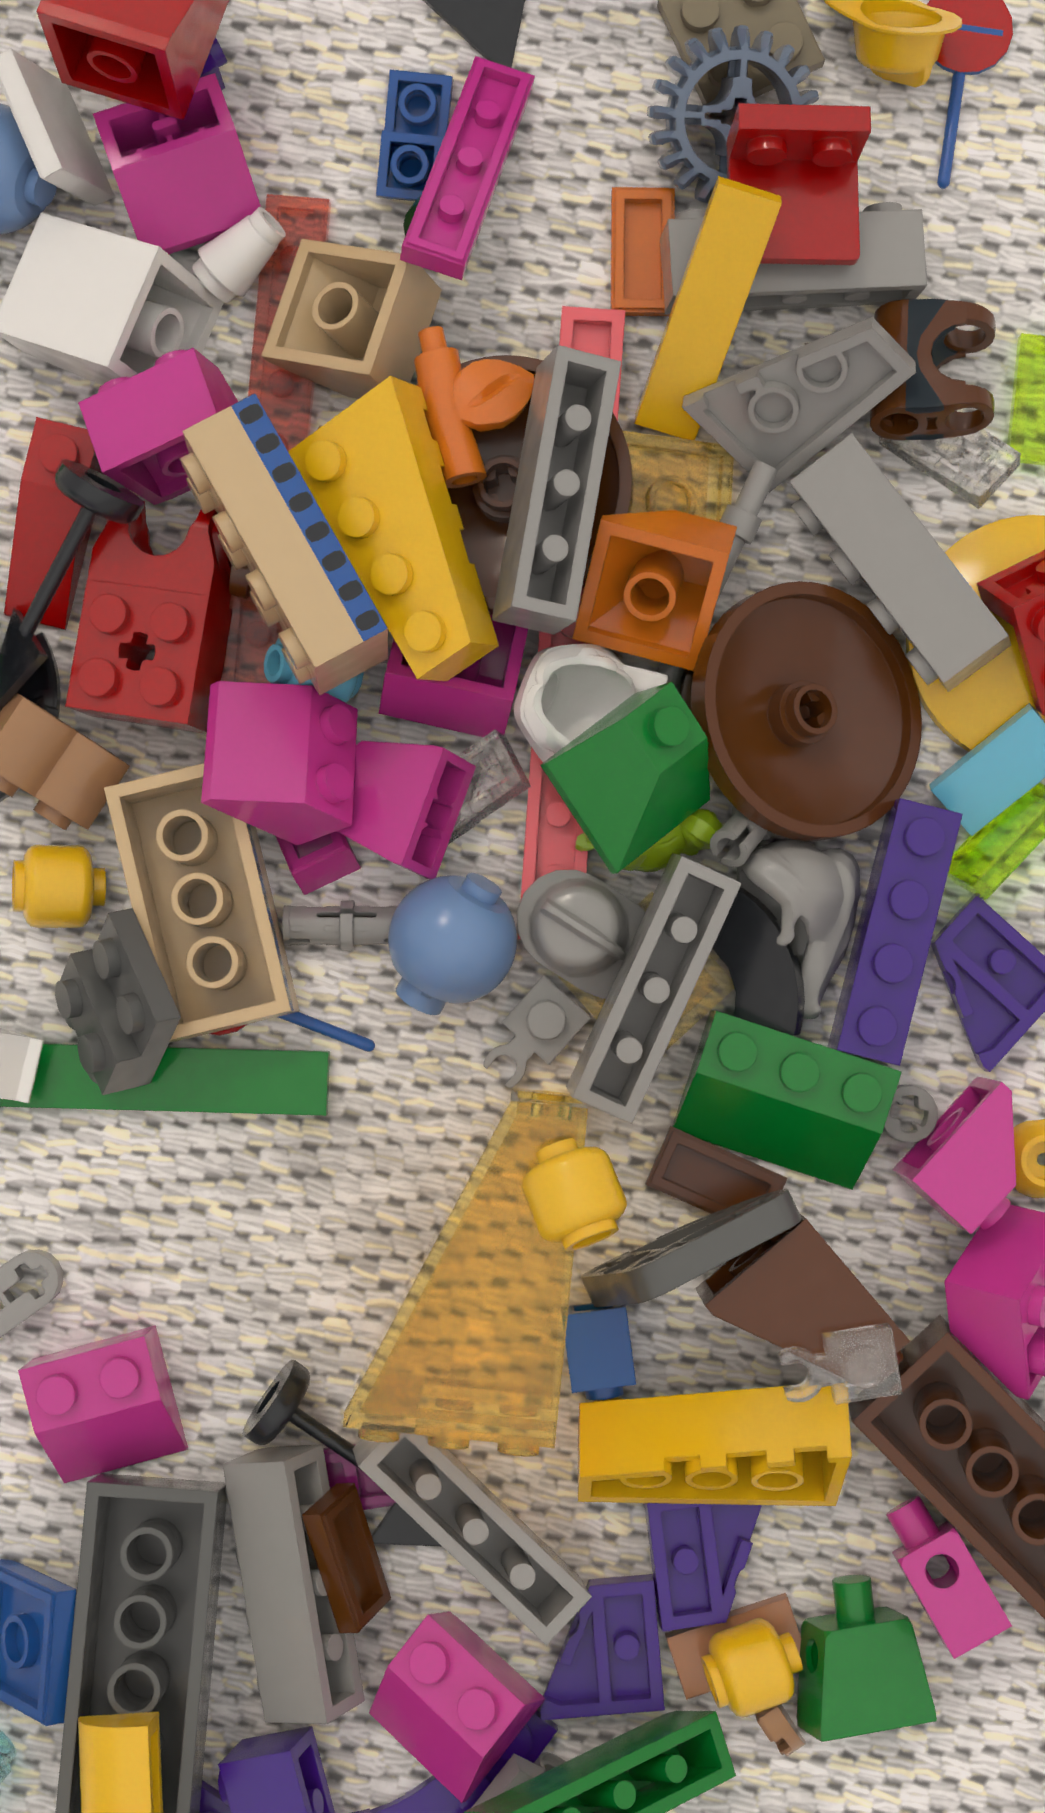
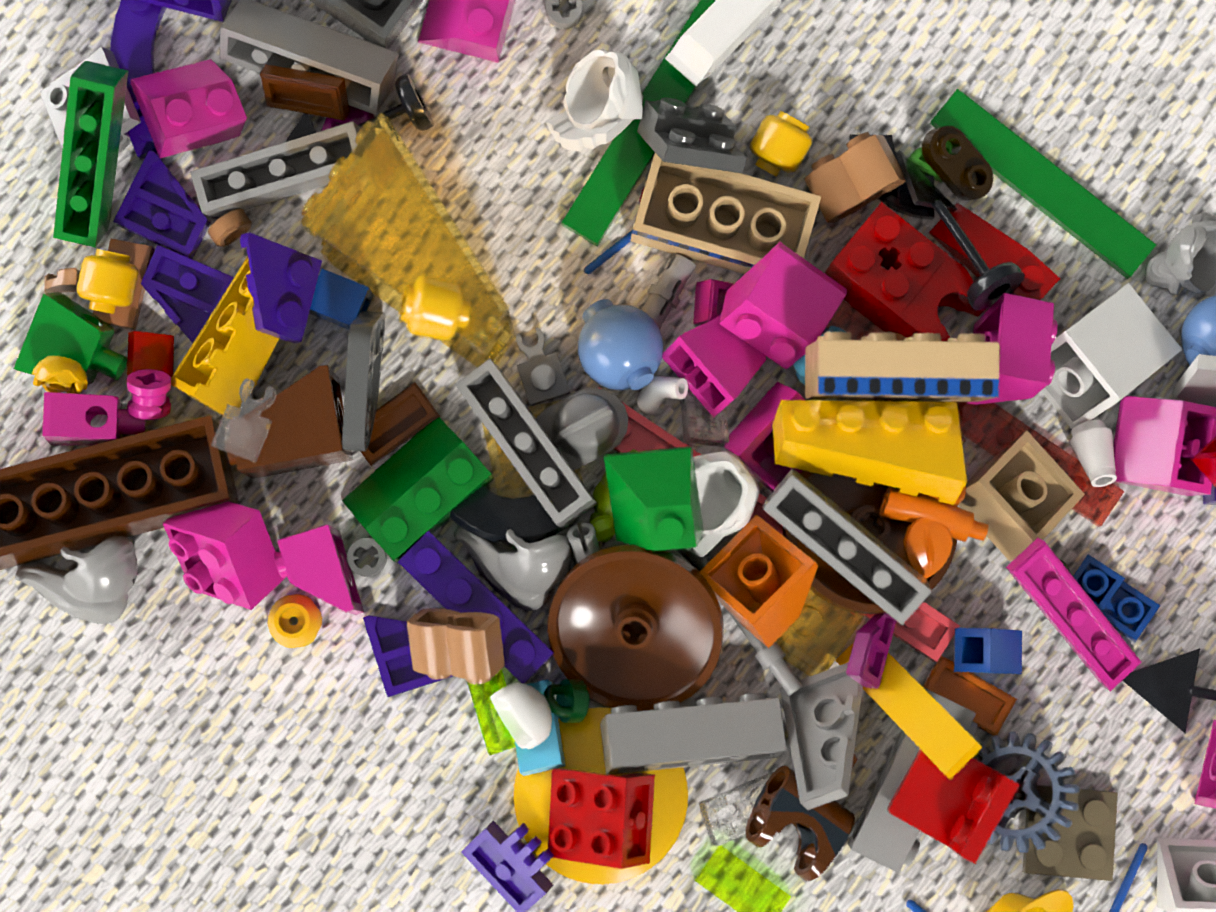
camera: 120 degrees right, 5 degrees down
(139, 1156) = (599, 101): none -> white hair
(475, 856) = (661, 387): none -> white arm
(576, 251) = (988, 650): none -> blue brick
(583, 1548) = (229, 227): none -> medium nougat tile
(632, 1431) = (281, 286): none -> dark purple wing
(666, 395) = (871, 650): none -> magenta tile
(810, 1552) = (150, 352): none -> red tile
(867, 1521) = (149, 394): none -> dark pink wheel
(915, 1652) = (60, 375): none -> yellow plate
(945, 742) = (571, 700): none -> dark green tile
(964, 926) = (456, 644): none -> medium nougat brick
(998, 788) = (524, 714): none -> white hair

